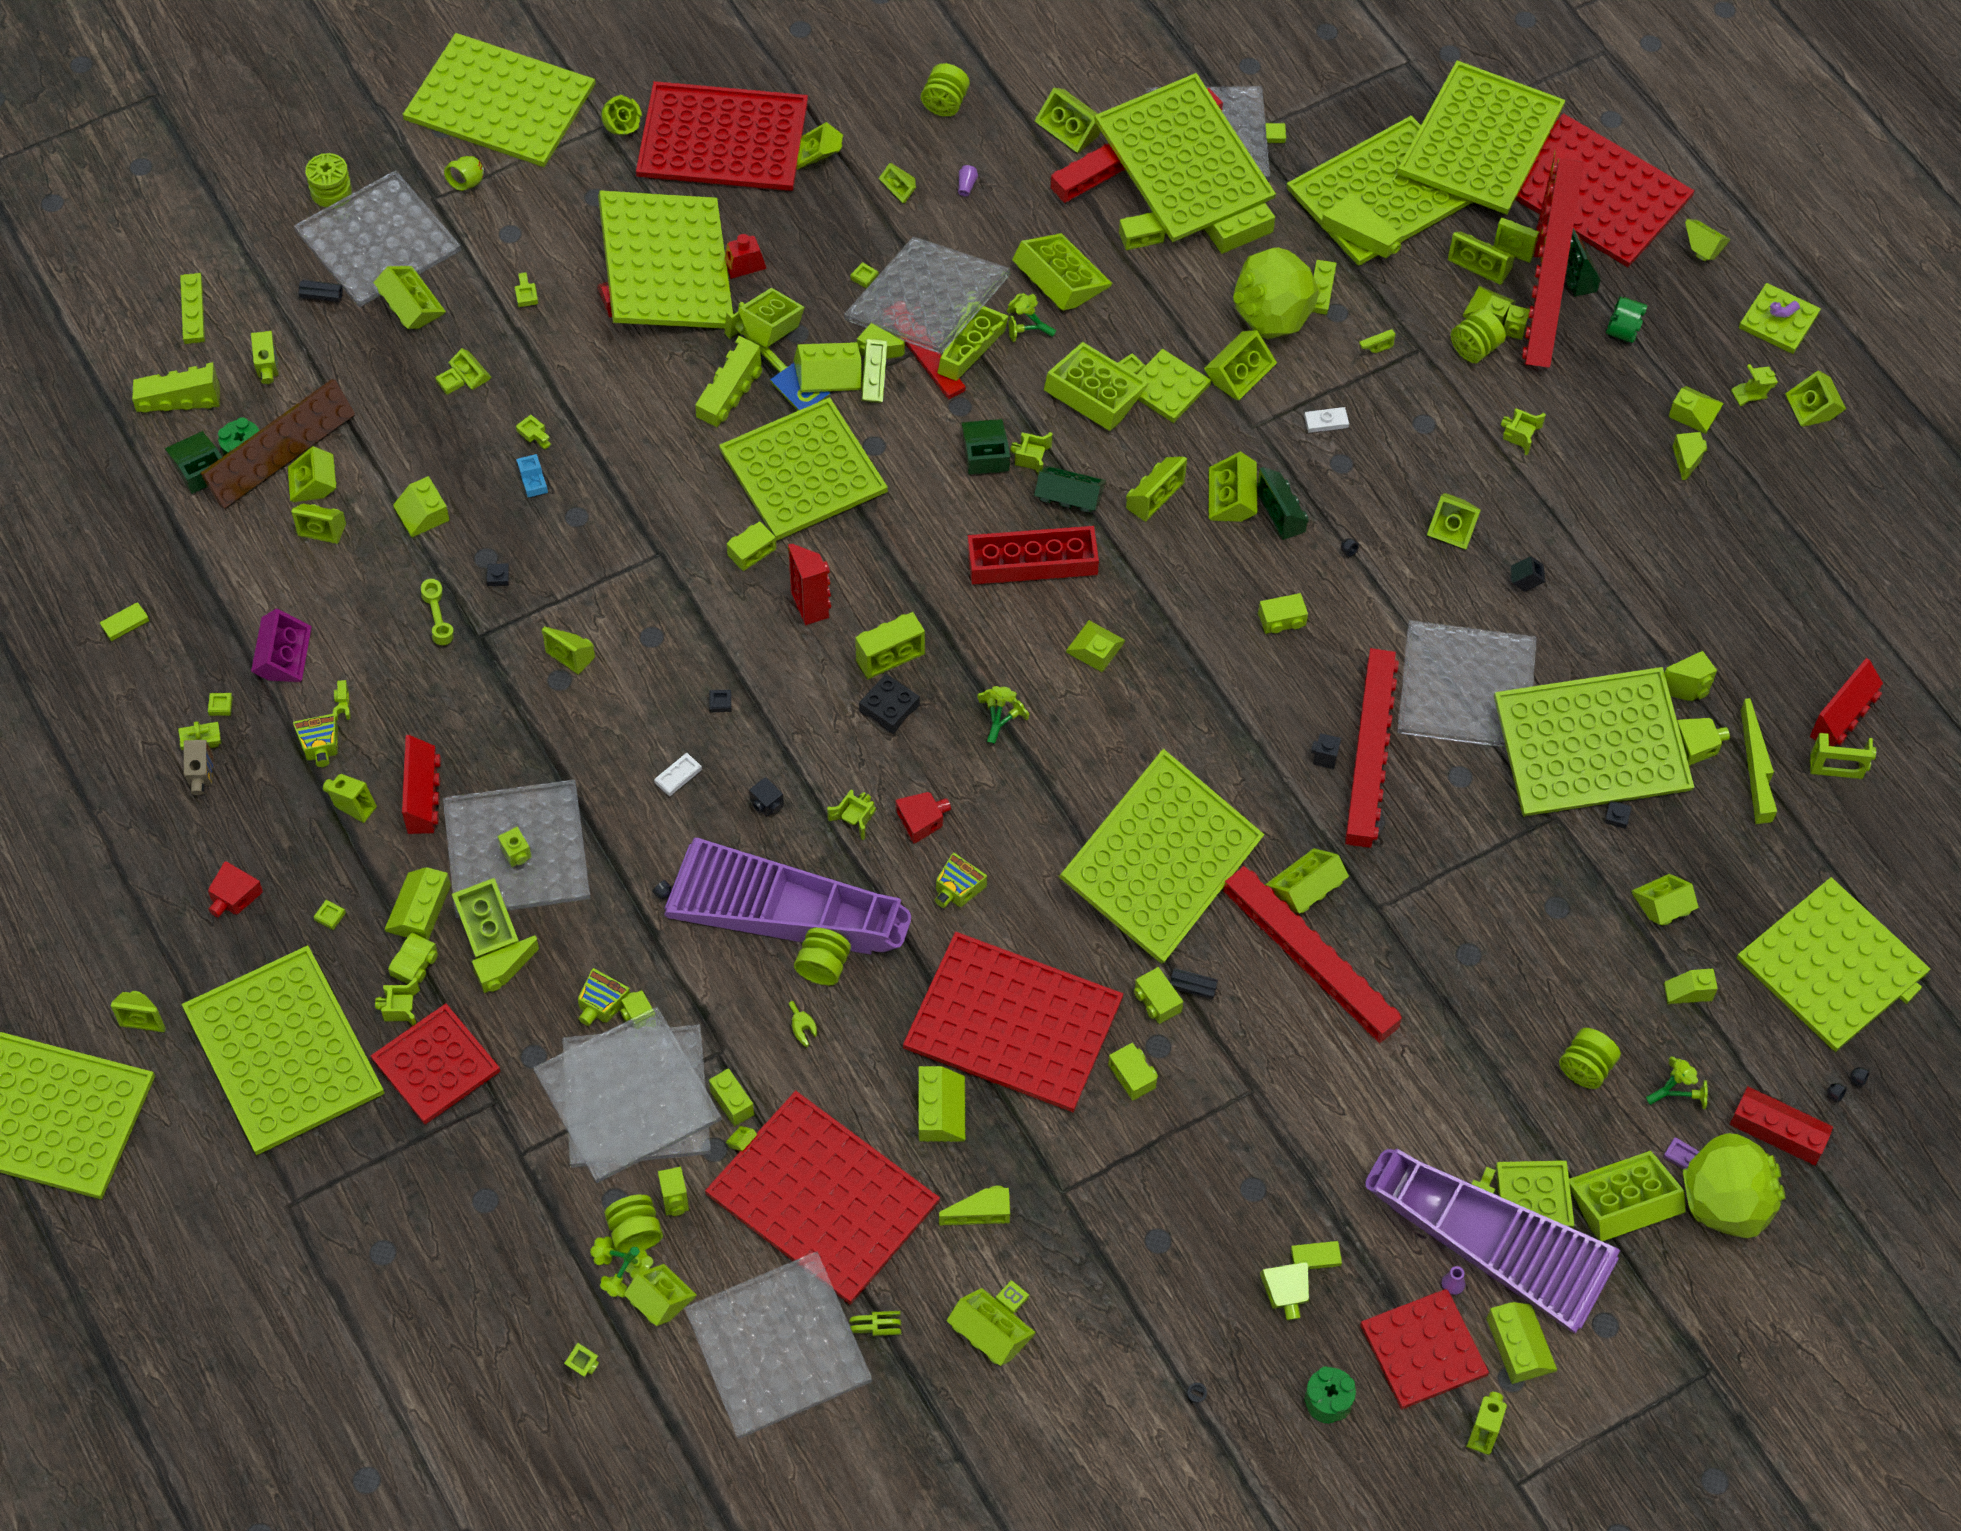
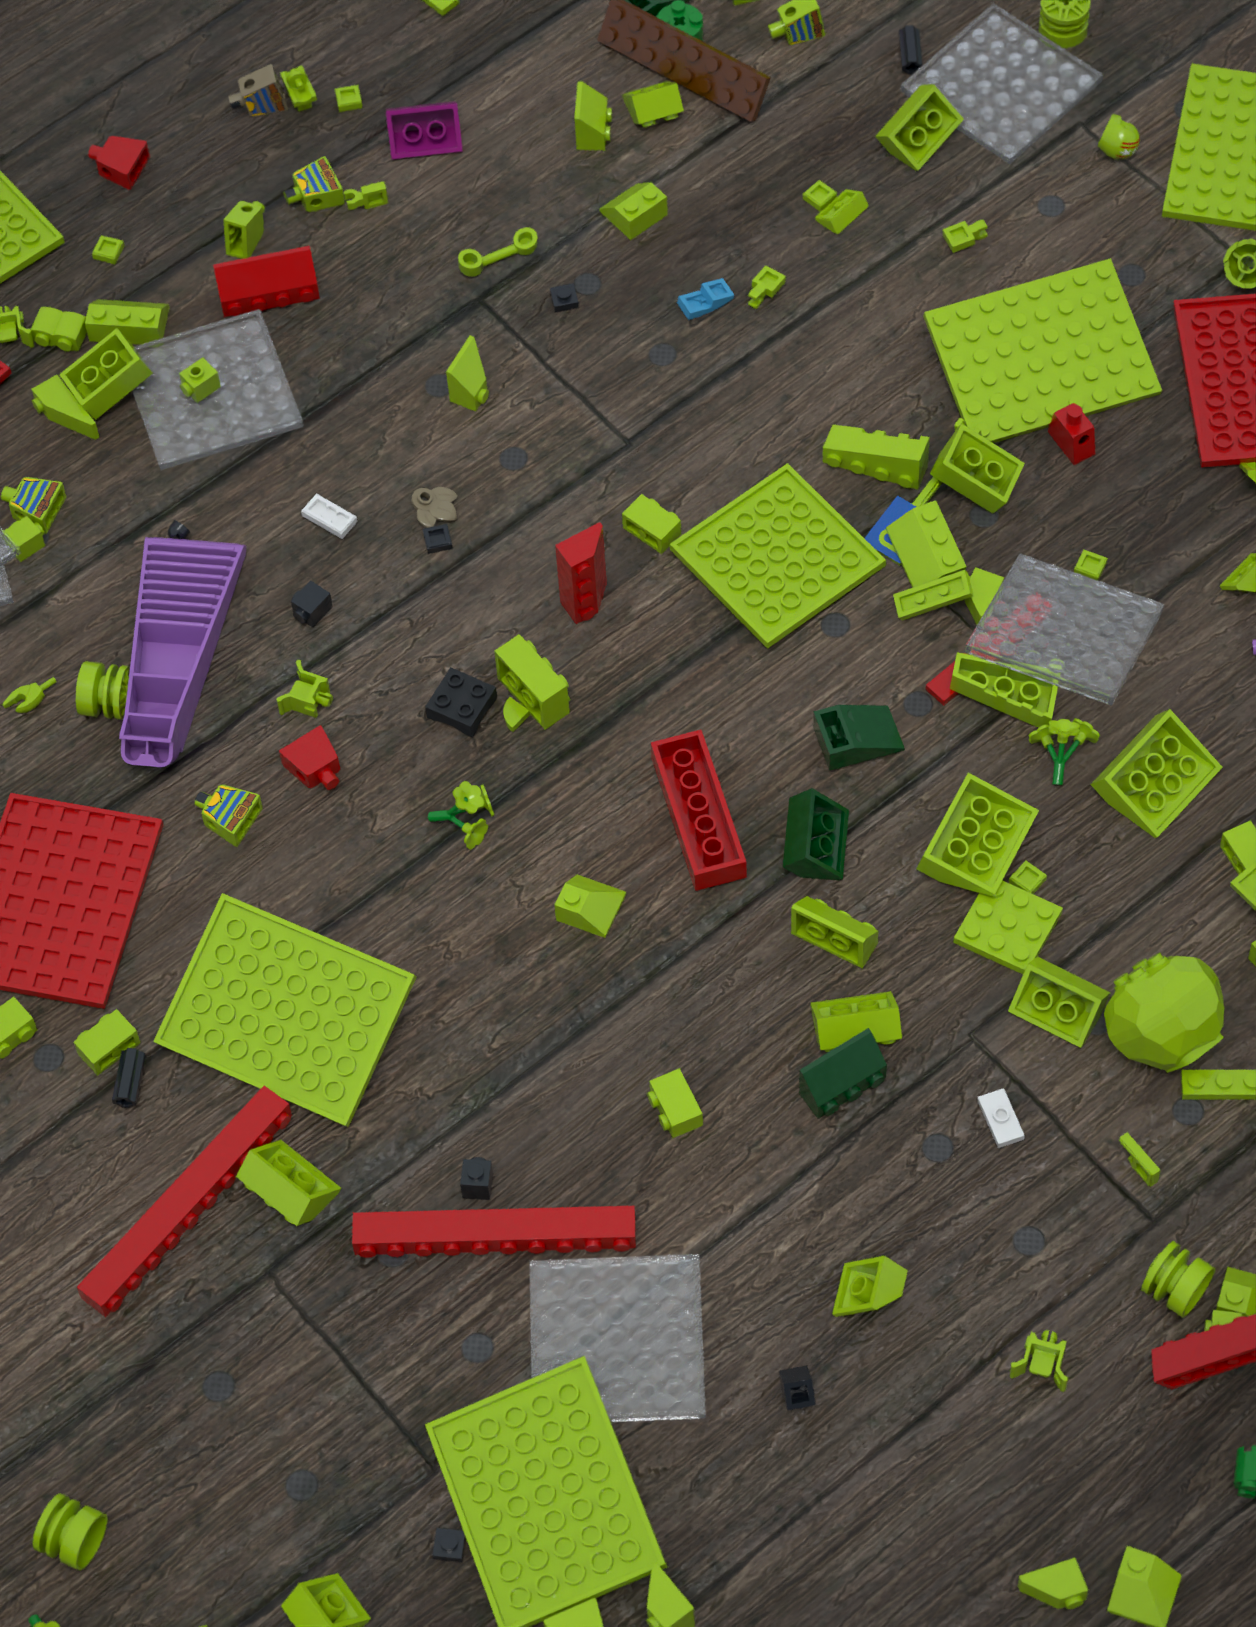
camera: 85 degrees right, 0 degrees up
(687, 697) = (436, 508): none -> dark tan plate
(907, 670) = (514, 714): none -> lime tile
(1031, 450) = (860, 783): lime piece -> none
(1349, 547) = (798, 1169): black hinge -> none

